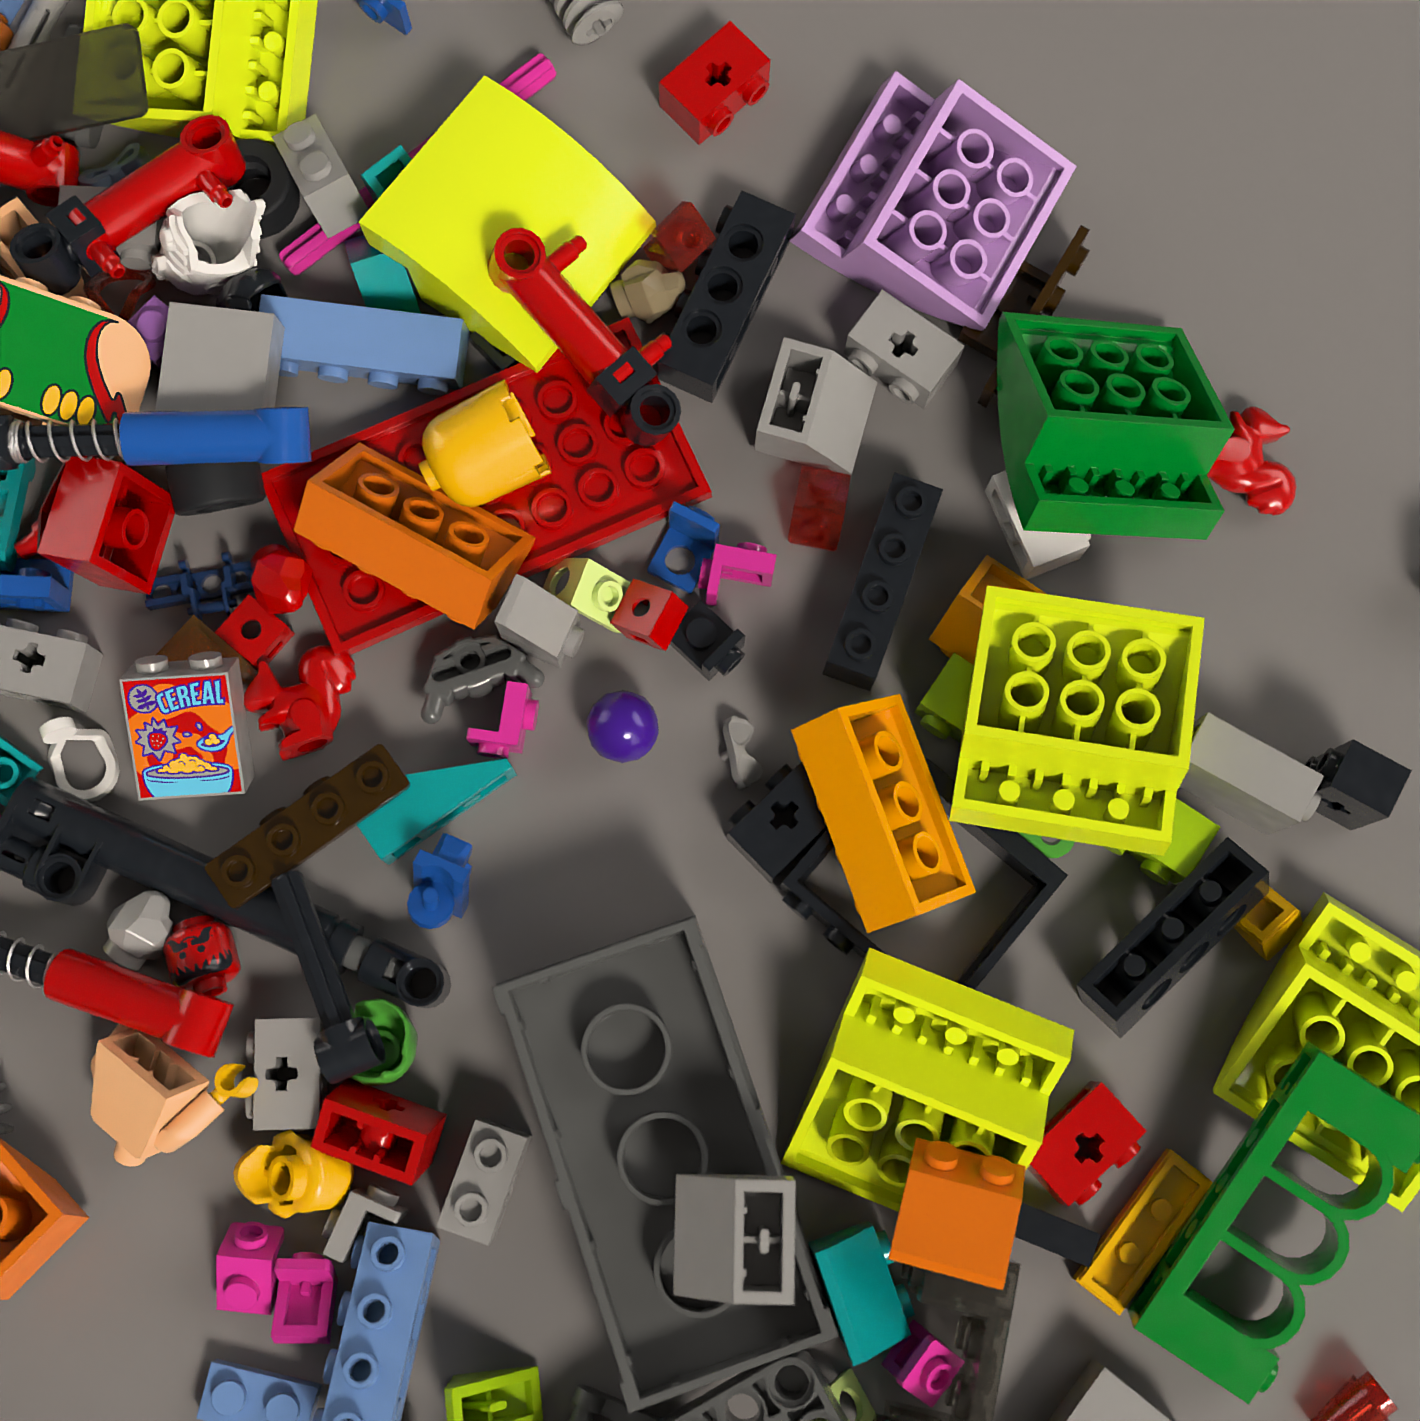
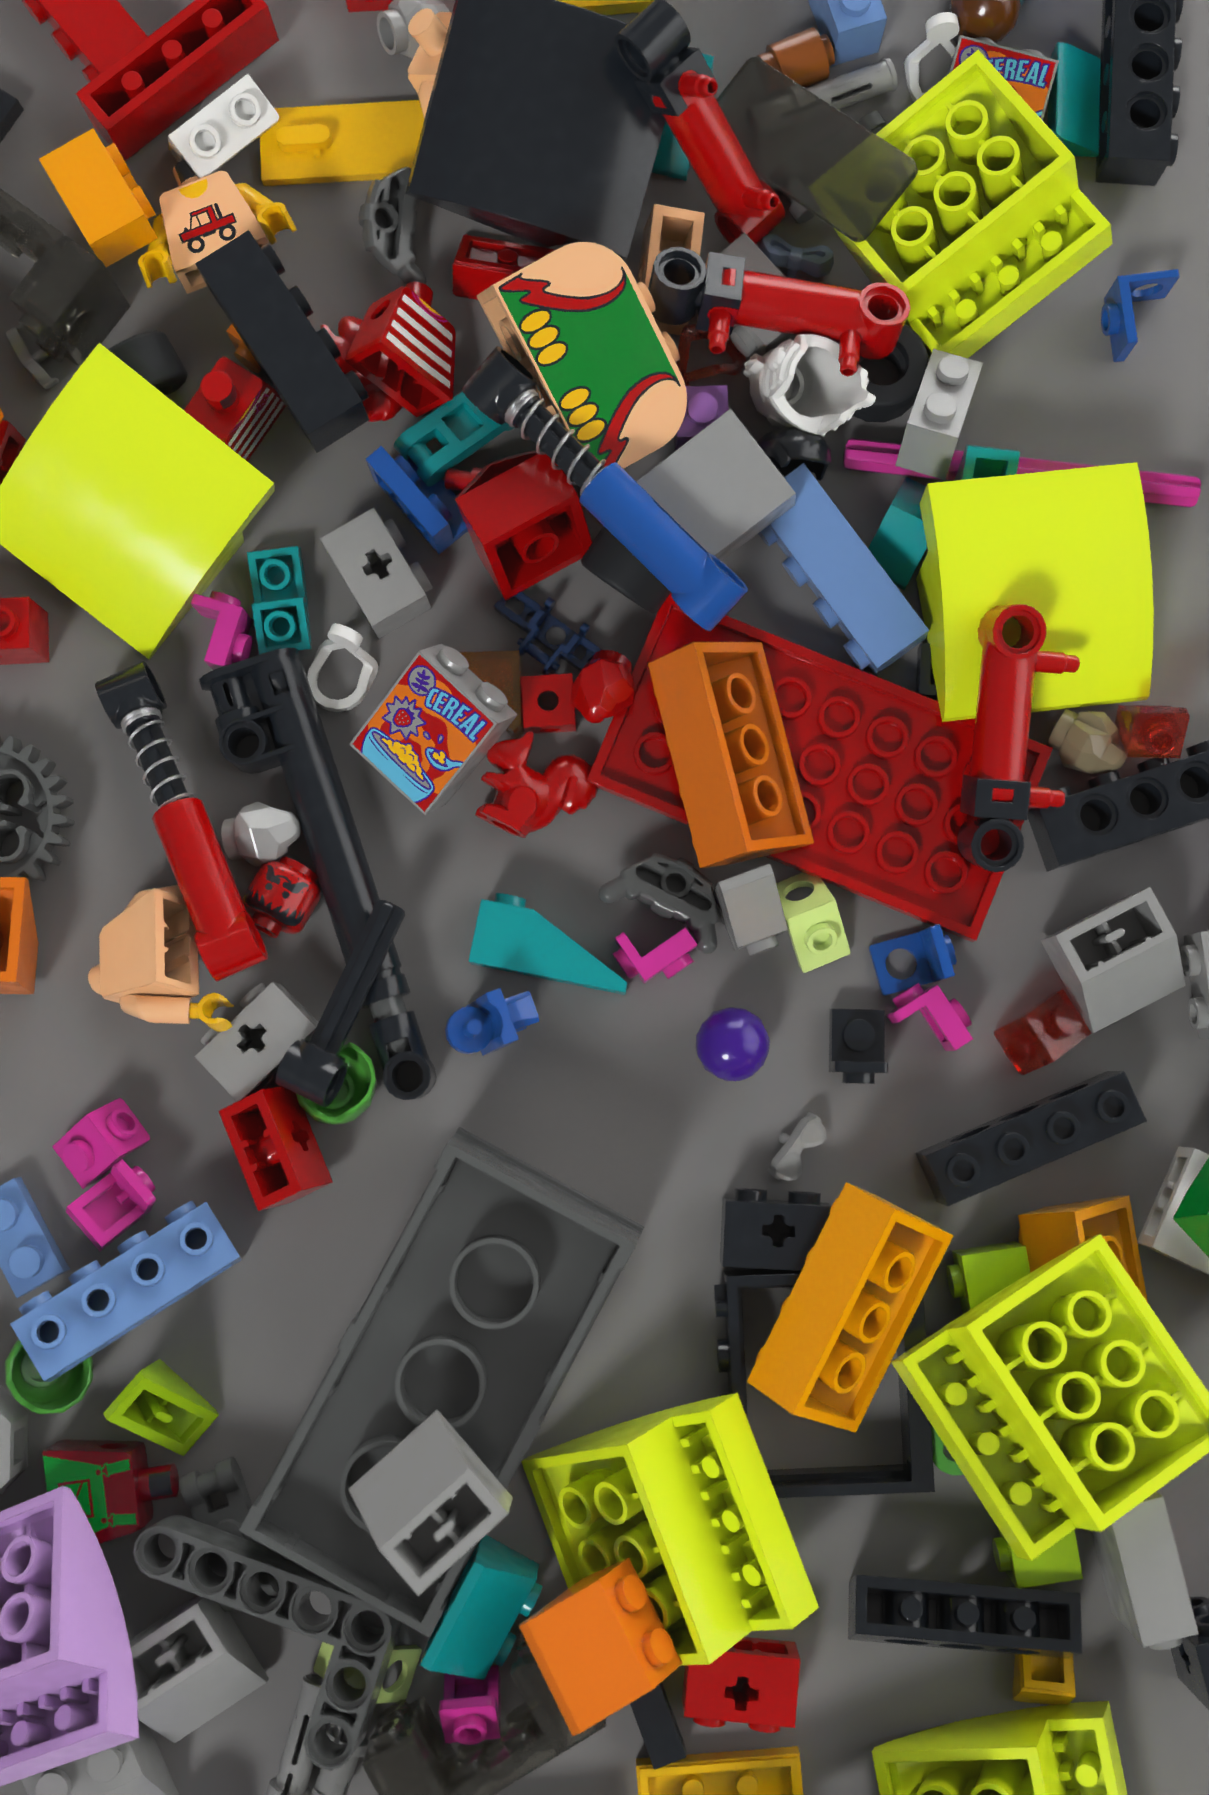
camera: 55 degrees right, 5 degrees up
(292, 1176) = (189, 1114): yellow head -> none
(307, 826) = (443, 885): dark brown bracket -> none
(351, 1220) = (192, 1184): light grey bracket -> none
(481, 448) = (842, 742): yellow cylinder -> none
(484, 1181) = (311, 1256): light grey brick -> none
(658, 624) = (841, 997): red piece -> none

